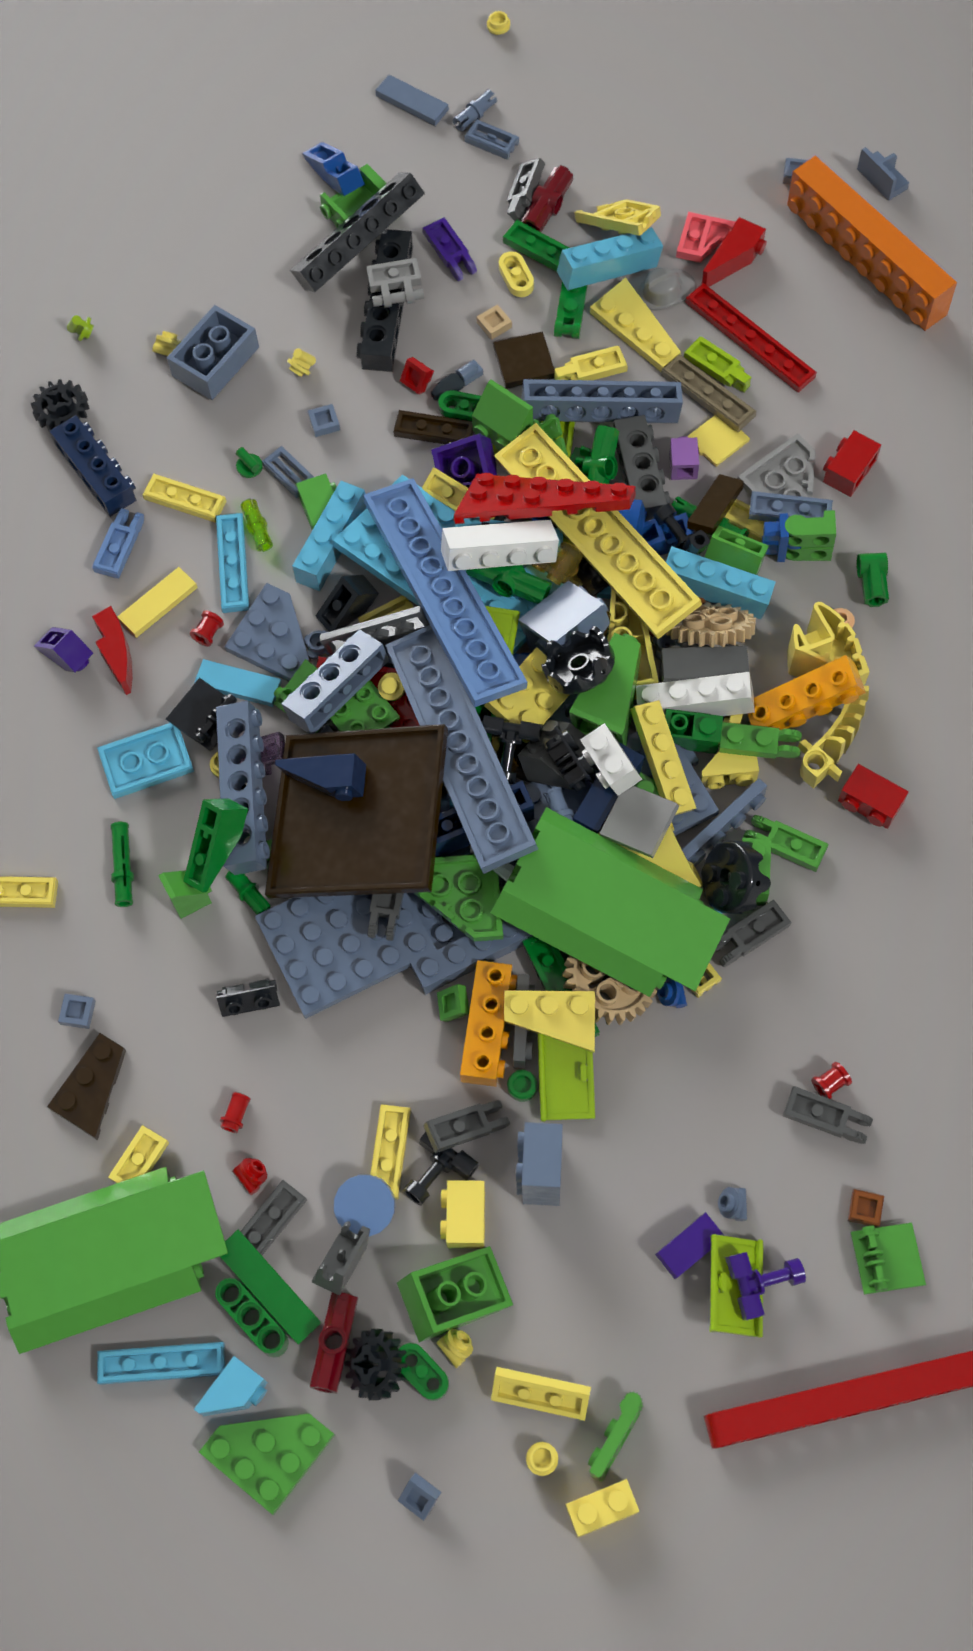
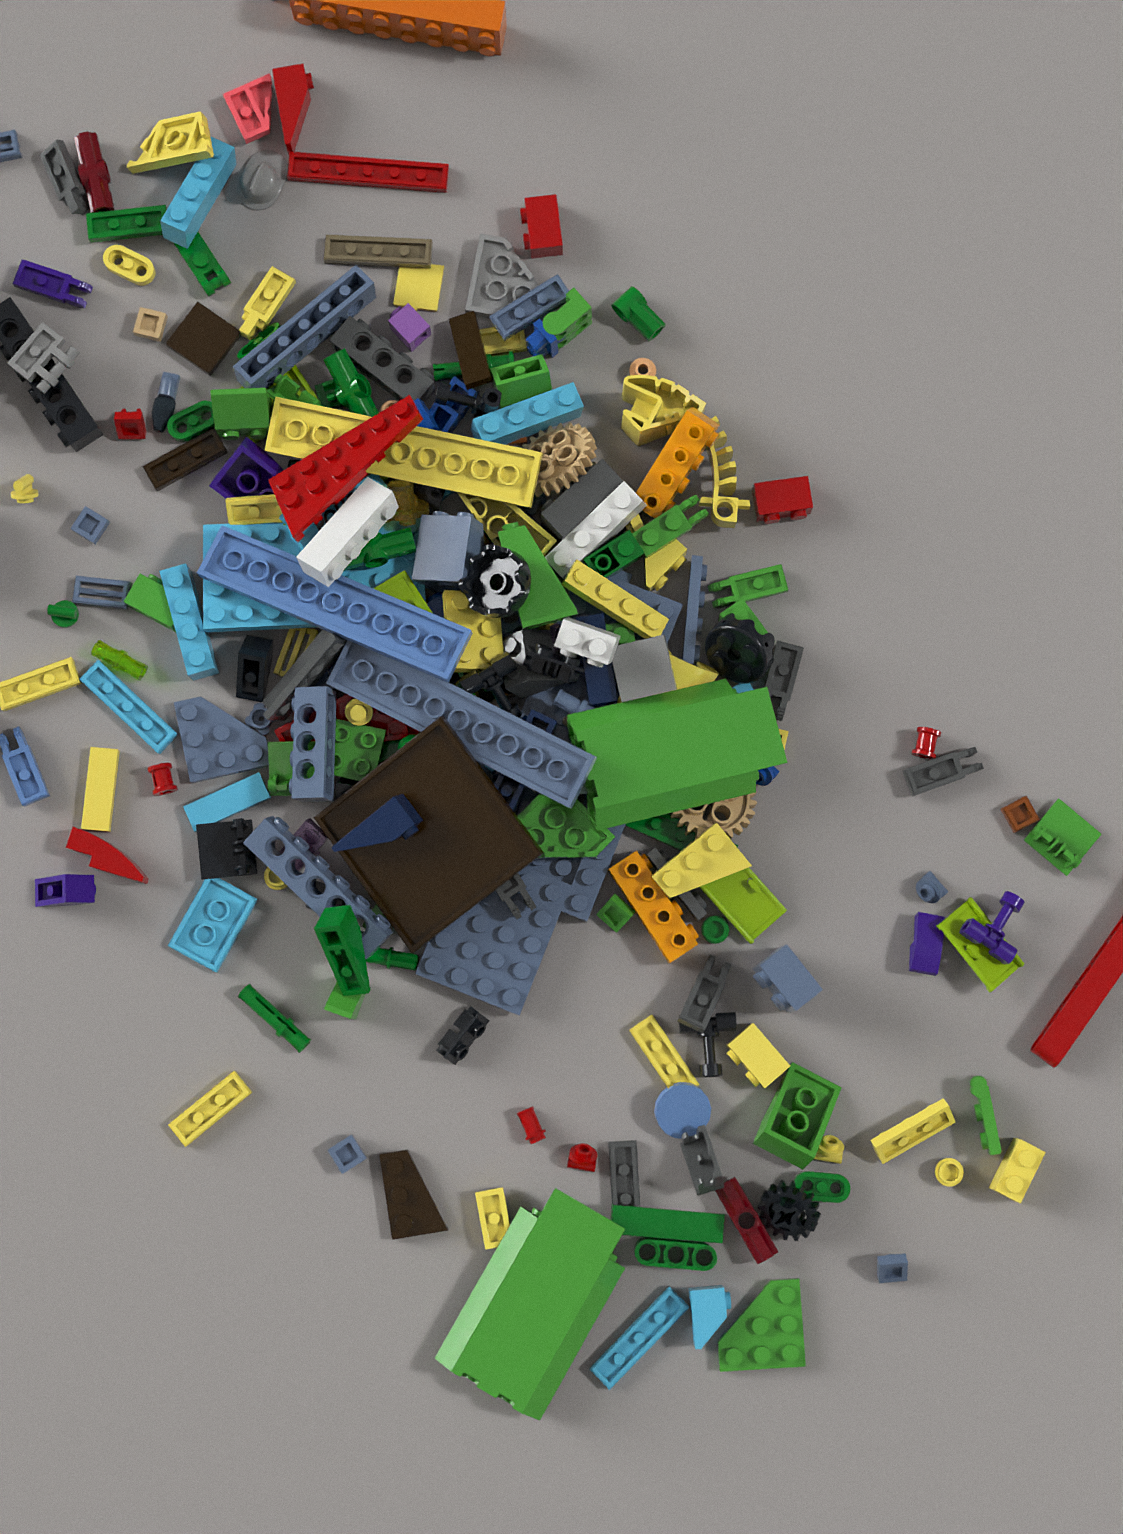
camera: 45 degrees left, 15 degrees up
(635, 324) = (266, 234): light yellow wing -> none
(718, 364) = (364, 219): lime hinge -> none

